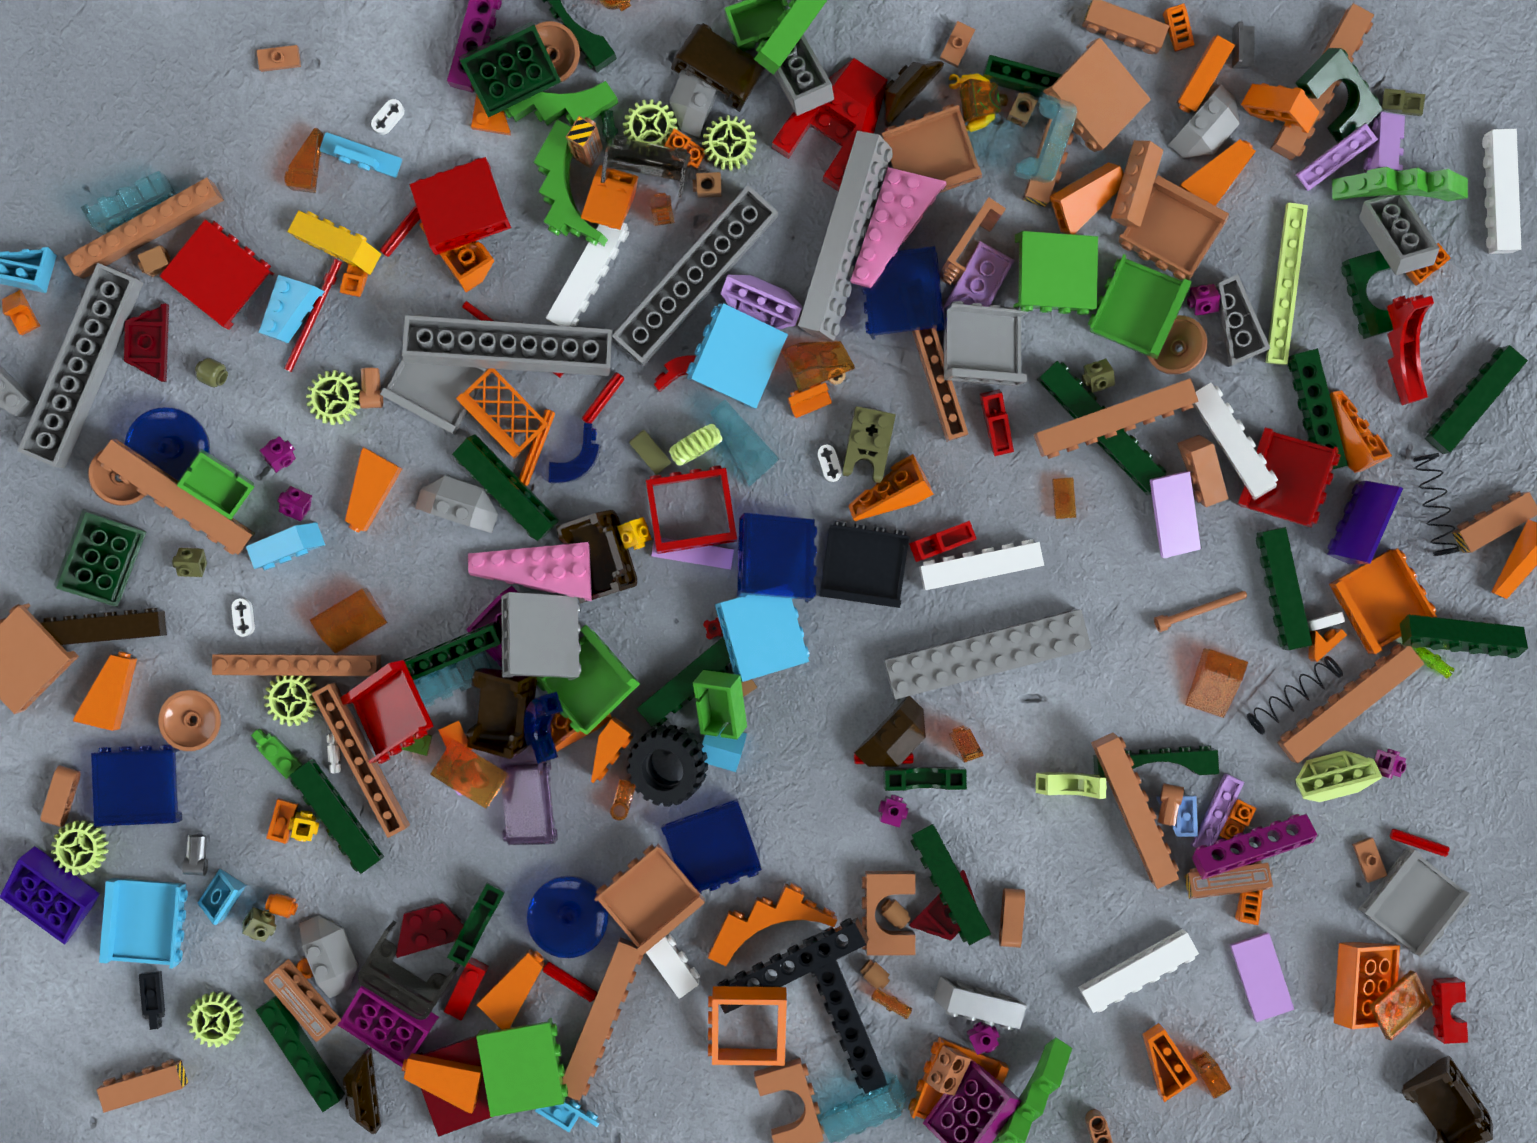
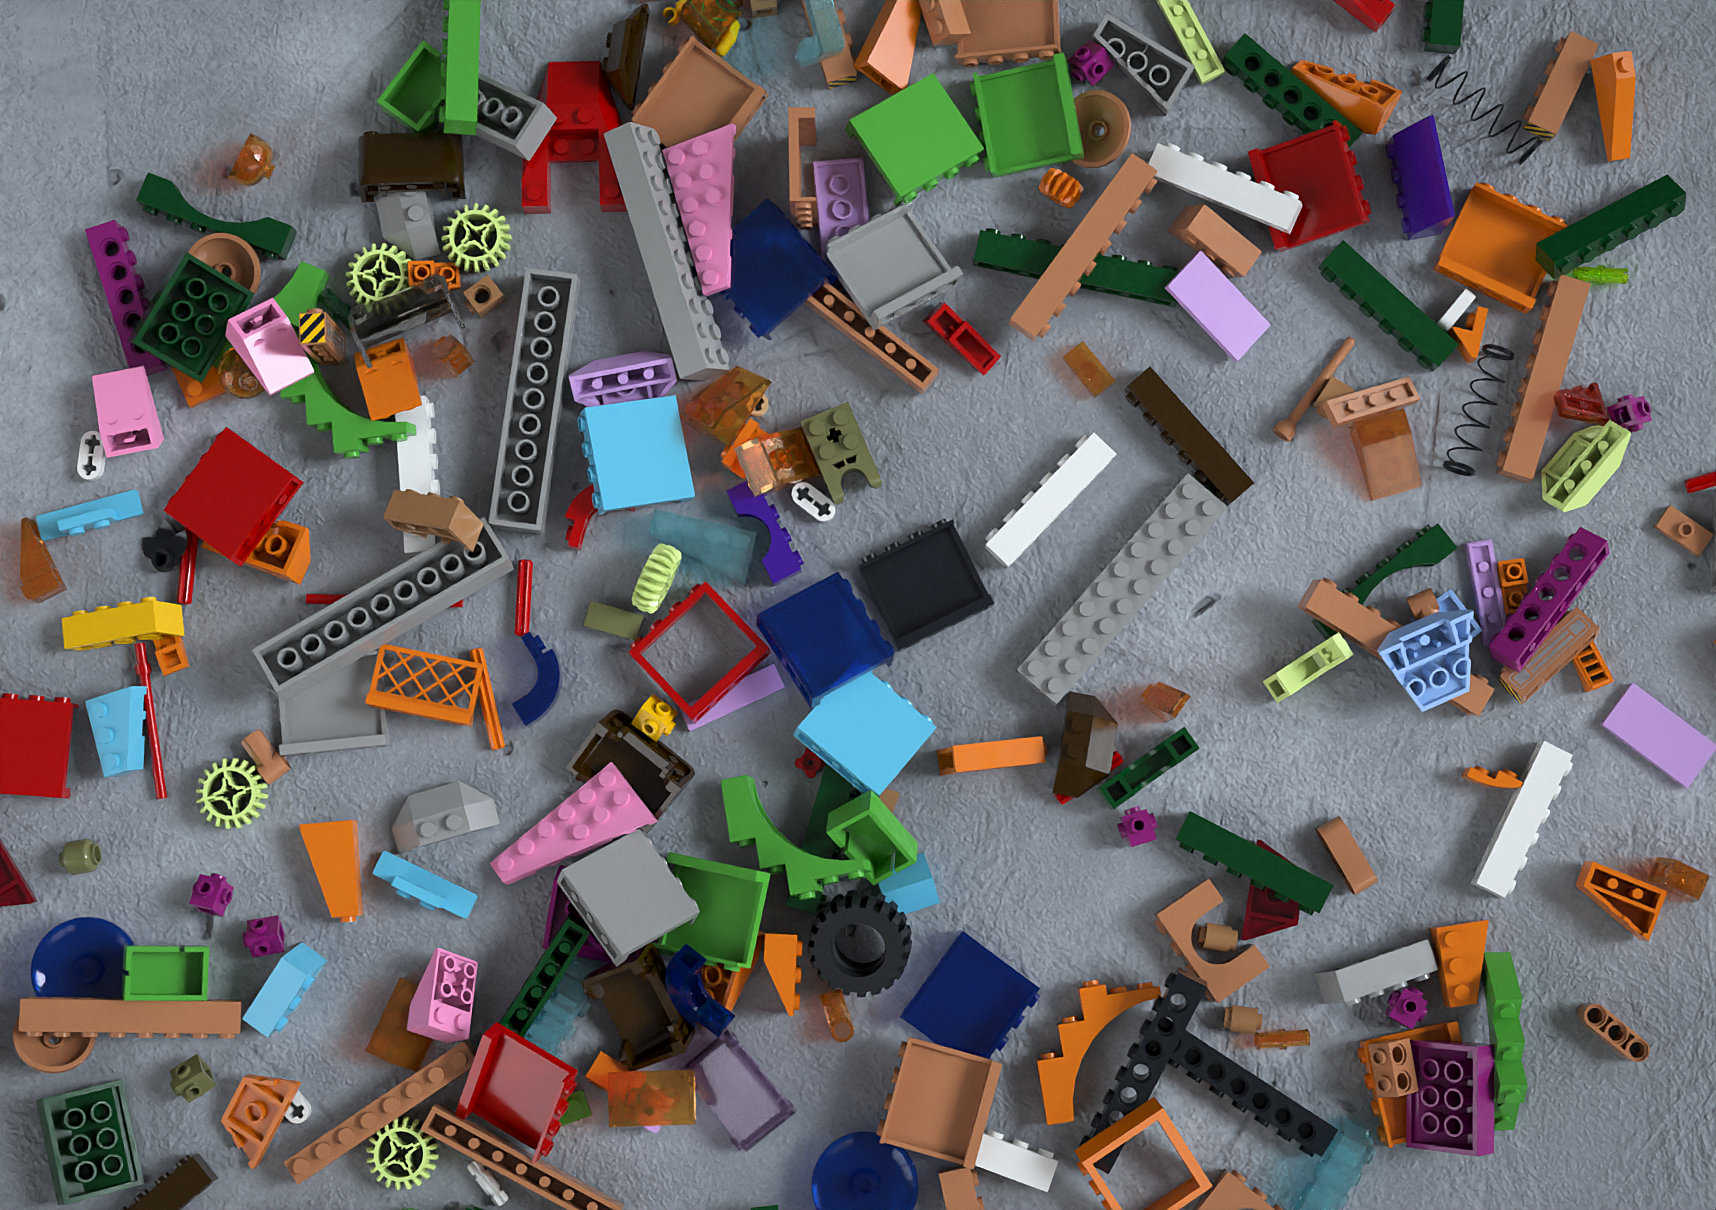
camera: 30 degrees left, 5 degrees down
(217, 611) = (257, 1113): none -> orange wing
(382, 620) = (444, 998): none -> bright pink slope
(397, 207) = (165, 543): none -> black plate
(417, 540) = (424, 885): none -> medium azure bracket
(427, 103) = (126, 412): none -> bright pink slope
(505, 487) = (482, 764): dark green brick -> none
(520, 129) = (237, 377): none -> clear orange cylinder
(547, 123) = (269, 346): none -> bright pink slope
(579, 308) = (433, 516): none -> medium nougat wedge
(649, 642) = (750, 823): none -> bright green arch
(789, 435) = (780, 560): none -> dark purple arch
(823, 422) = (776, 461): none -> clear orange slope
(831, 703) = (991, 755): none -> orange slope
(898, 489) = (906, 479): orange wedge -> none
(942, 541) = (991, 502): red slope -> none
(1038, 1030) = (1459, 960): none -> orange wedge
(1097, 585) = (1188, 436): none -> dark brown brick
(1098, 375) = (1035, 216): olive brick -> none
(1128, 368) = (1061, 188): none -> orange gear
(1143, 937) = (1499, 779): none -> orange slope
(1154, 833) = (1431, 657): none -> light blue wedge
(1206, 623) = (1332, 389): none -> medium nougat brick
(1229, 643) = (1370, 402): none -> nougat plate
(1363, 737) = (1582, 404): none -> clear red wing

